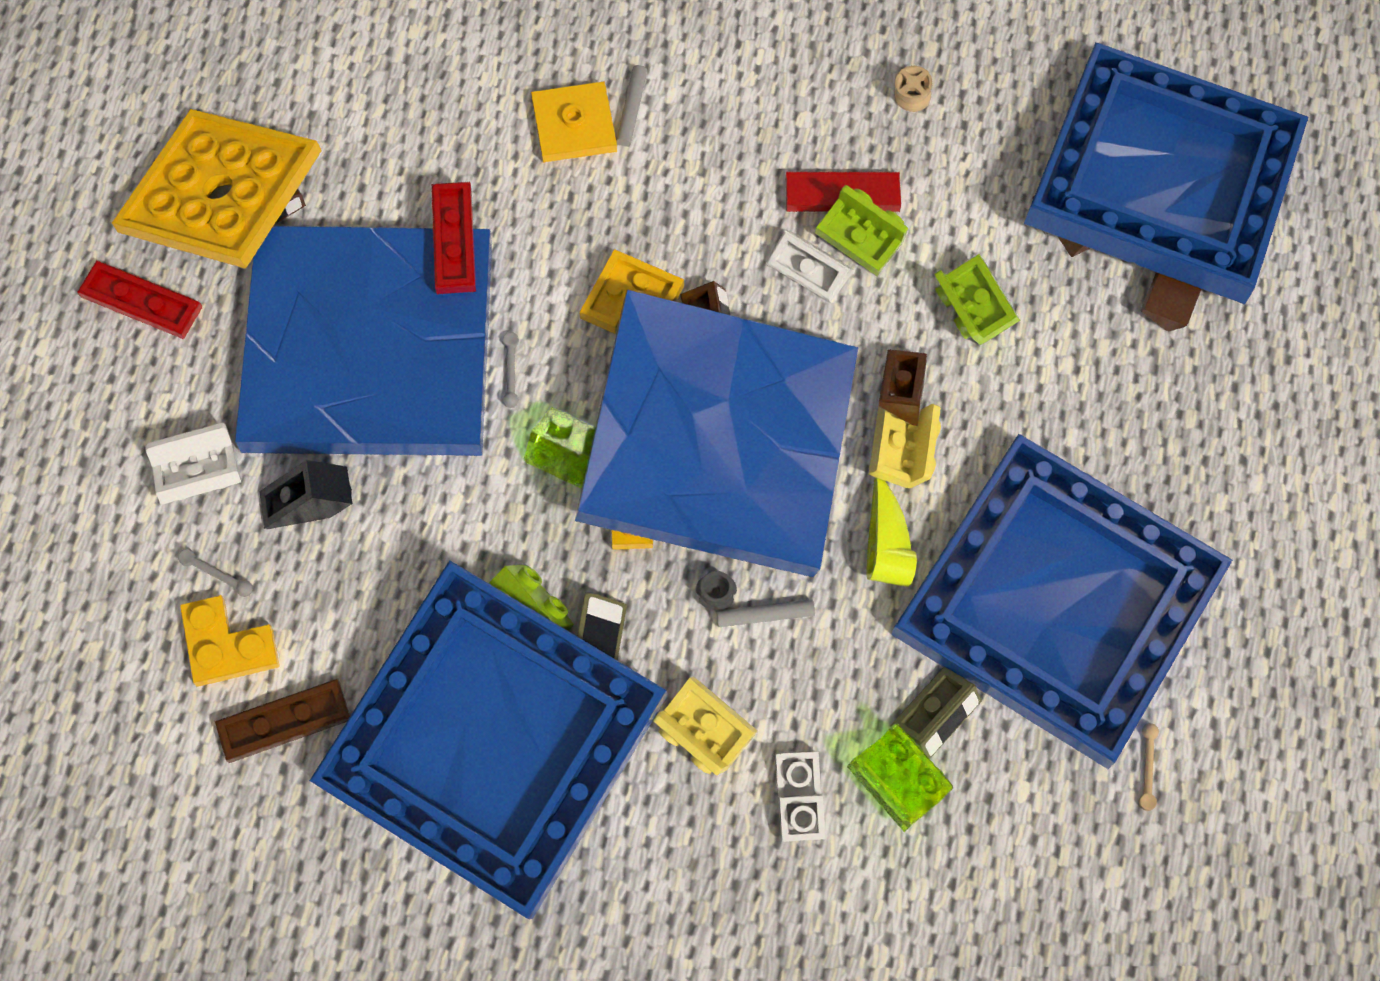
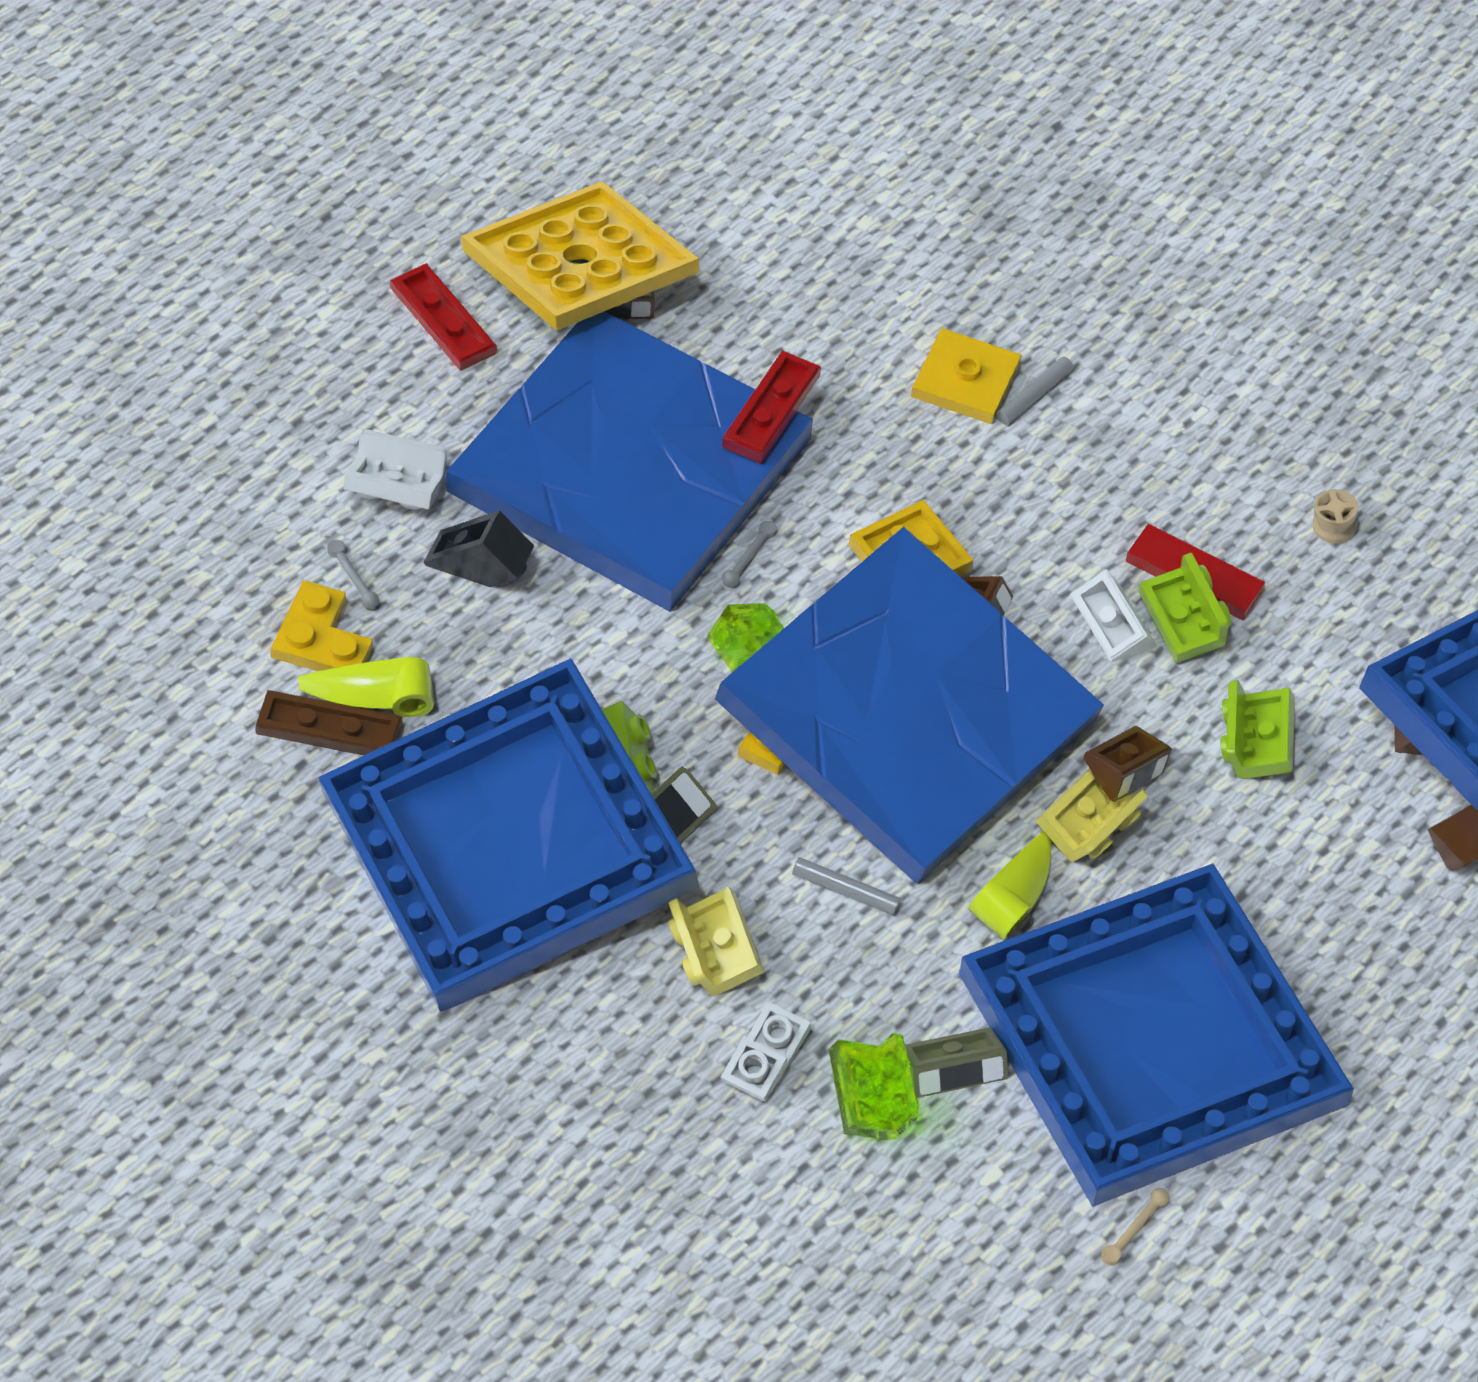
camera: 30 degrees right, 15 degrees down
(311, 659) = (383, 684): none -> neon yellow piece
(718, 580) = (813, 828): dark grey plate -> none

